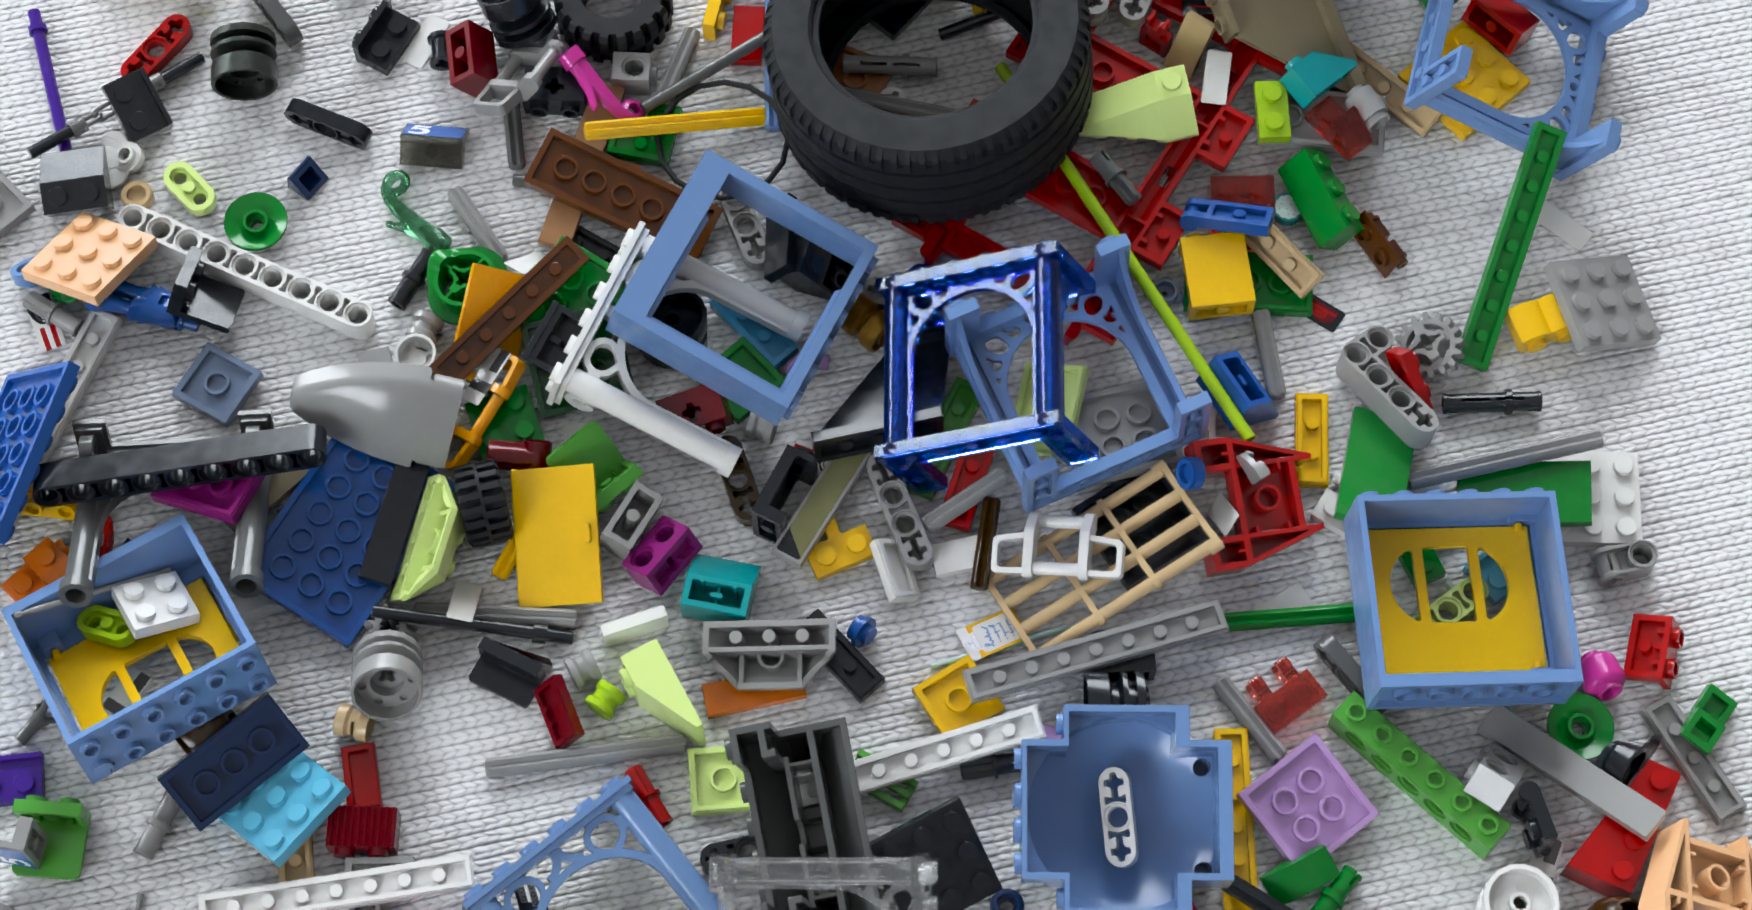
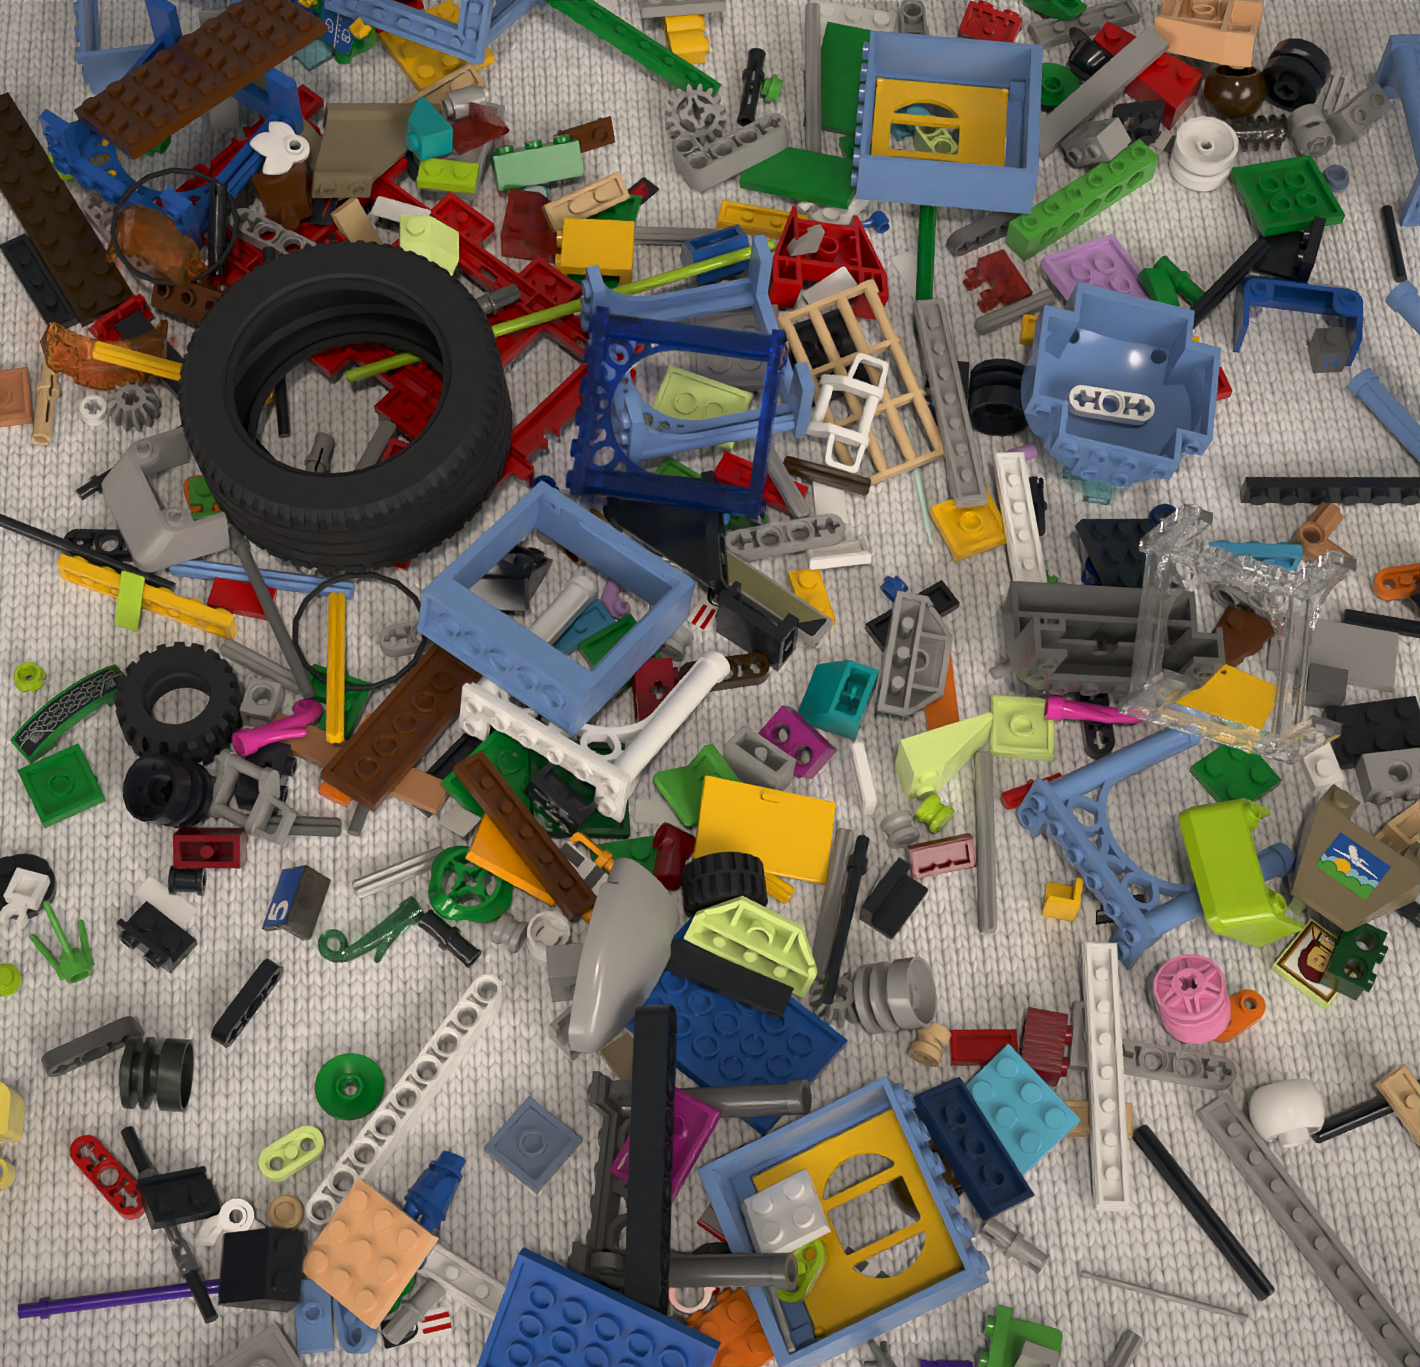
camera: 85 degrees left, 5 degrees down
(34, 237) = (314, 1320): none -> medium blue plate
(203, 298) = (433, 1144): black bracket -> none
(307, 179) = (306, 1034): dark blue slope -> none
(464, 601) = (822, 924): white sticker -> none
(523, 832) = (1062, 900): none -> yellow panel
(739, 838) = (1059, 708): none -> dark pink plant
(988, 635) = (909, 494): white sticker -> none
(1190, 473) = (801, 291): blue tile -> none
(1227, 217) = (549, 224): blue plate -> none
(1338, 561) = (878, 221): none -> blue hand
(1406, 367) = (718, 126): red plate -> none
(1494, 422) = (771, 88): none -> bright green plate

